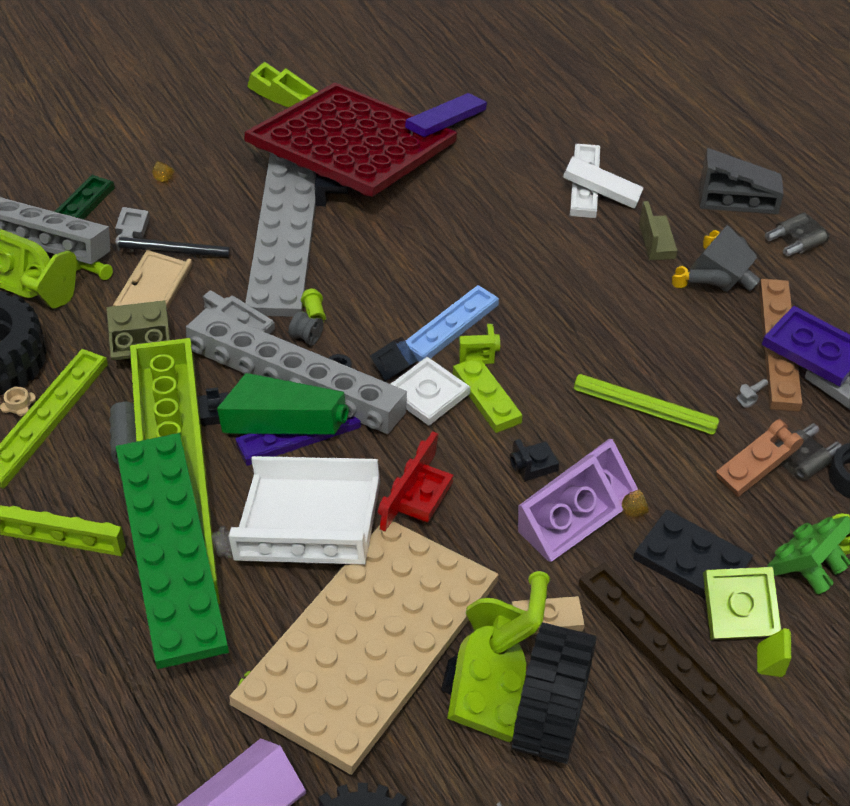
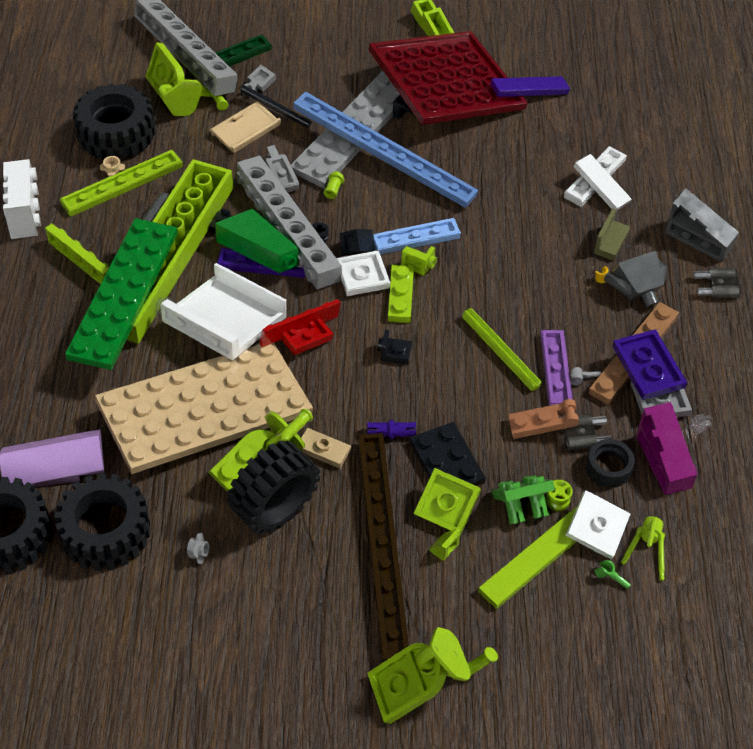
camera: 30 degrees right, 5 degrees up
(136, 325) = (211, 149): olive slope -> none
(162, 171) = (307, 50): clear yellow hinge -> none
(305, 328) = (316, 197): dark grey wheel -> none
(344, 241) = (385, 149): none -> medium blue plate
(576, 502) = (398, 387): lavender slope -> none
(606, 552) = (392, 429): none -> dark purple pin
(635, 504) = (436, 408): clear yellow hinge -> none
(719, 398) = (555, 366): none -> medium lavender tile

